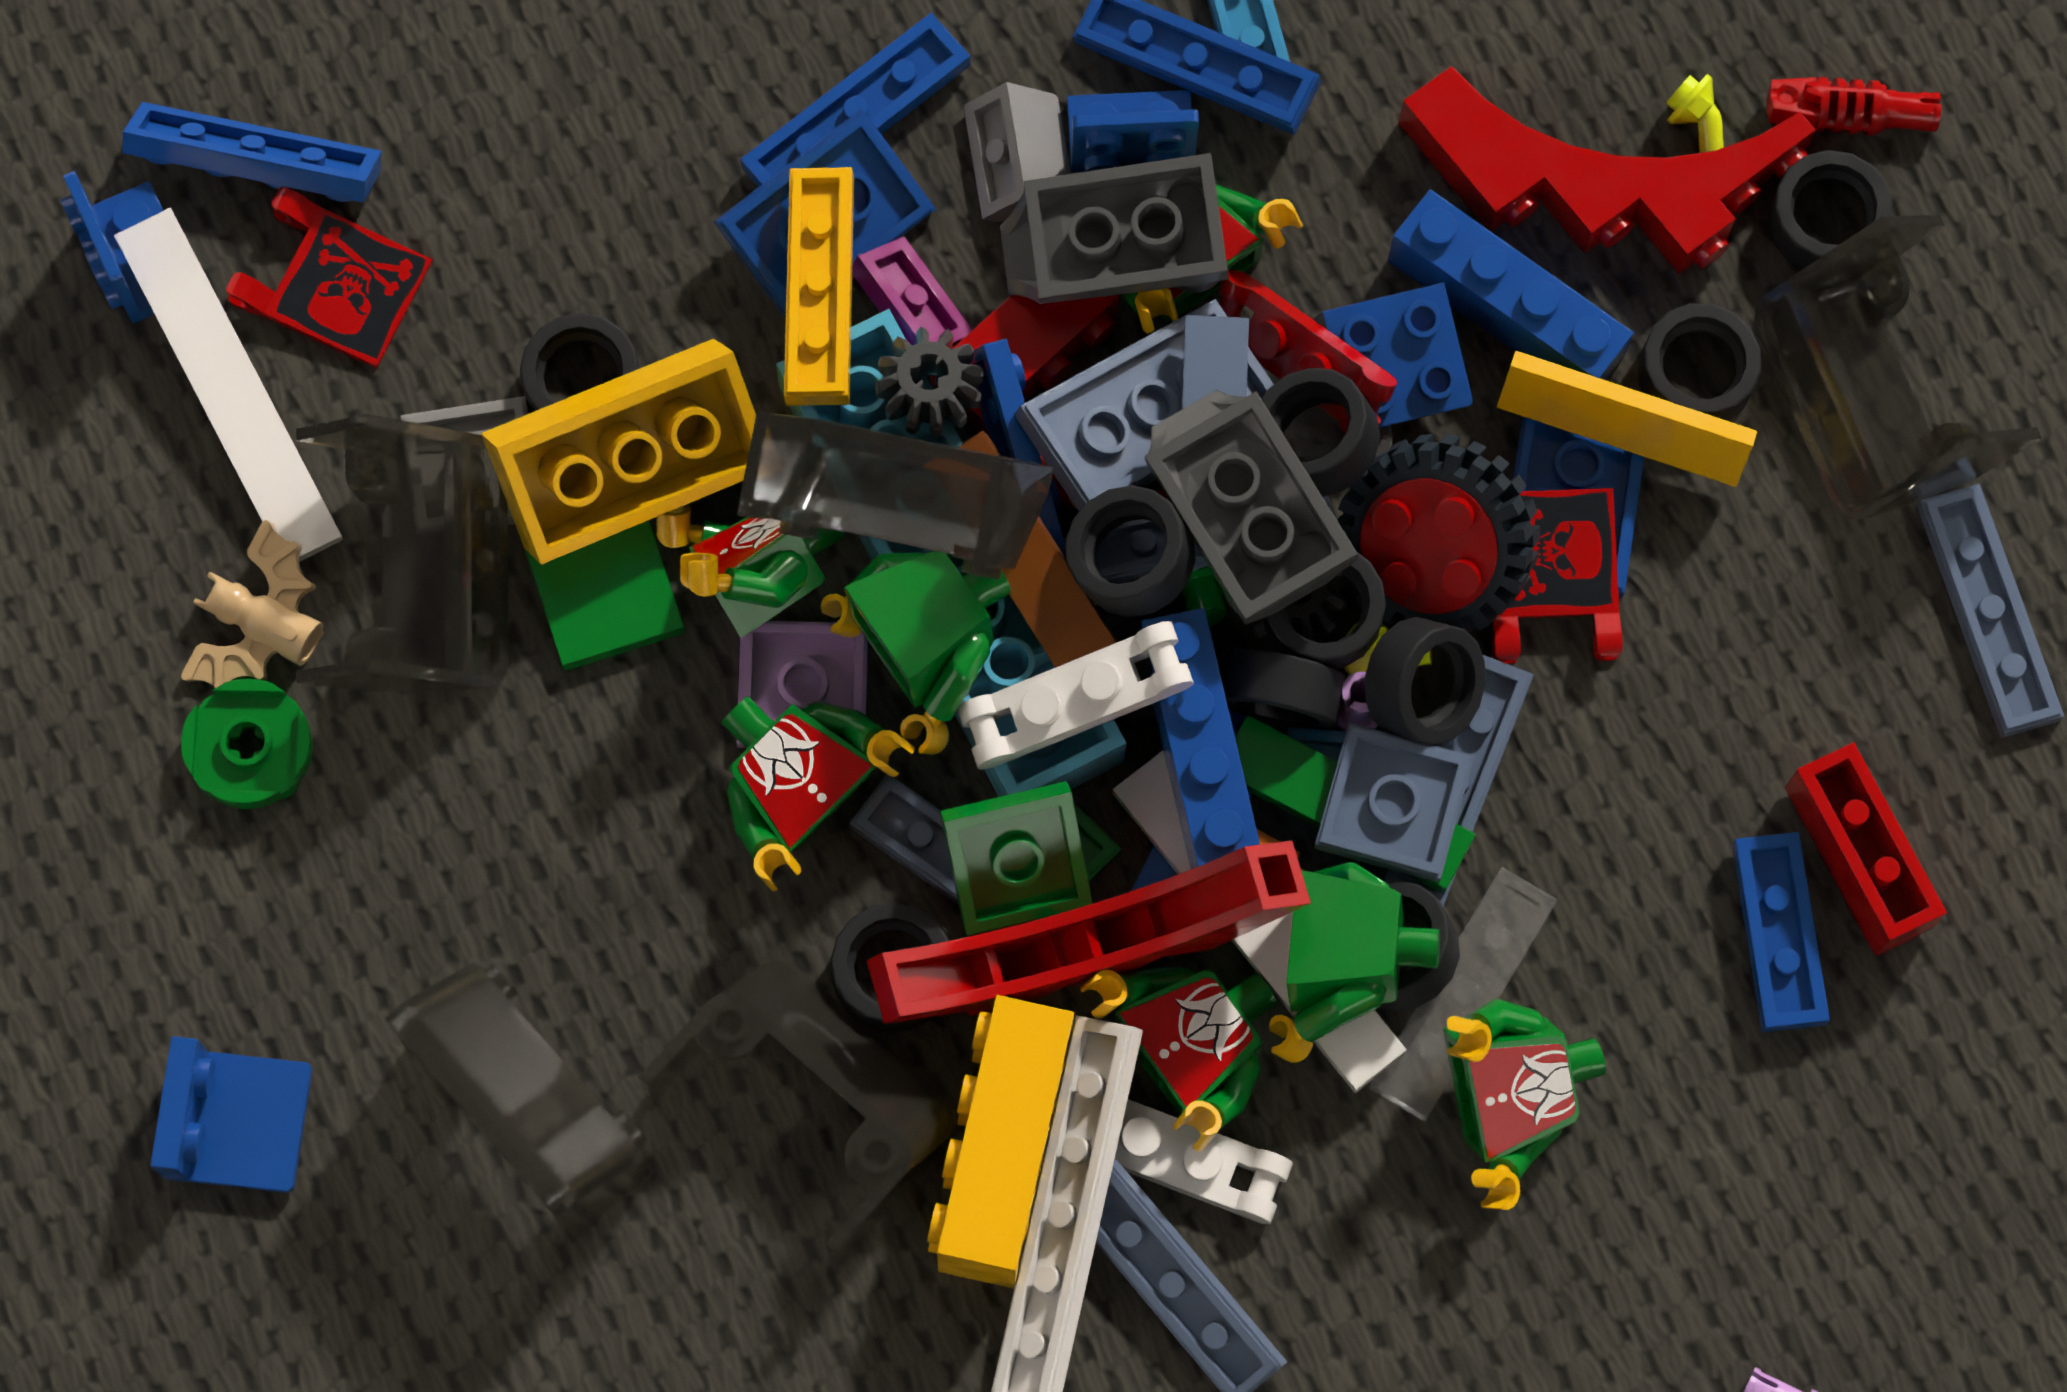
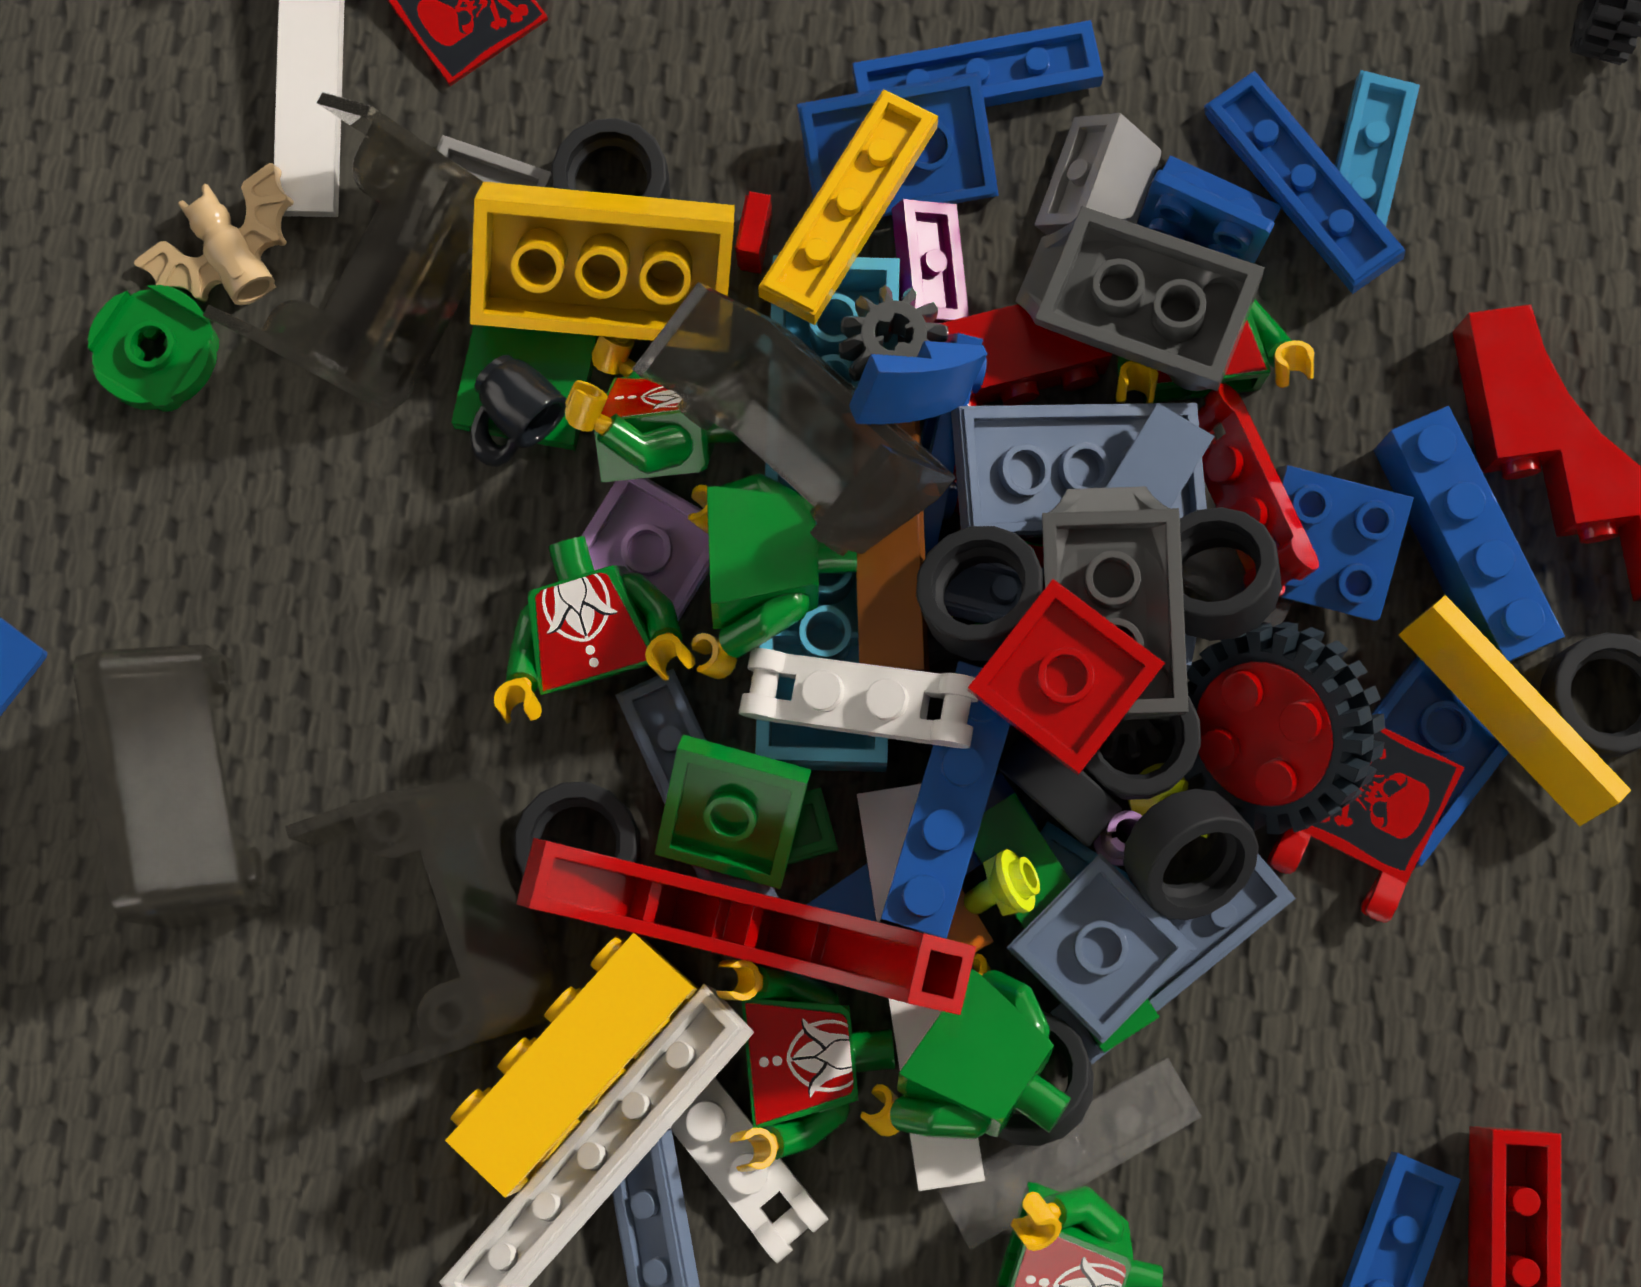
camera: 35 degrees right, 5 degrees up
(620, 613) = (519, 404): none -> black piece
(733, 336) = (753, 232): none -> red tile
(980, 405) = (916, 387): none -> blue slope
(1241, 577) = (1065, 676): none -> red plate
(1287, 790) = (1009, 884): none -> neon yellow plate

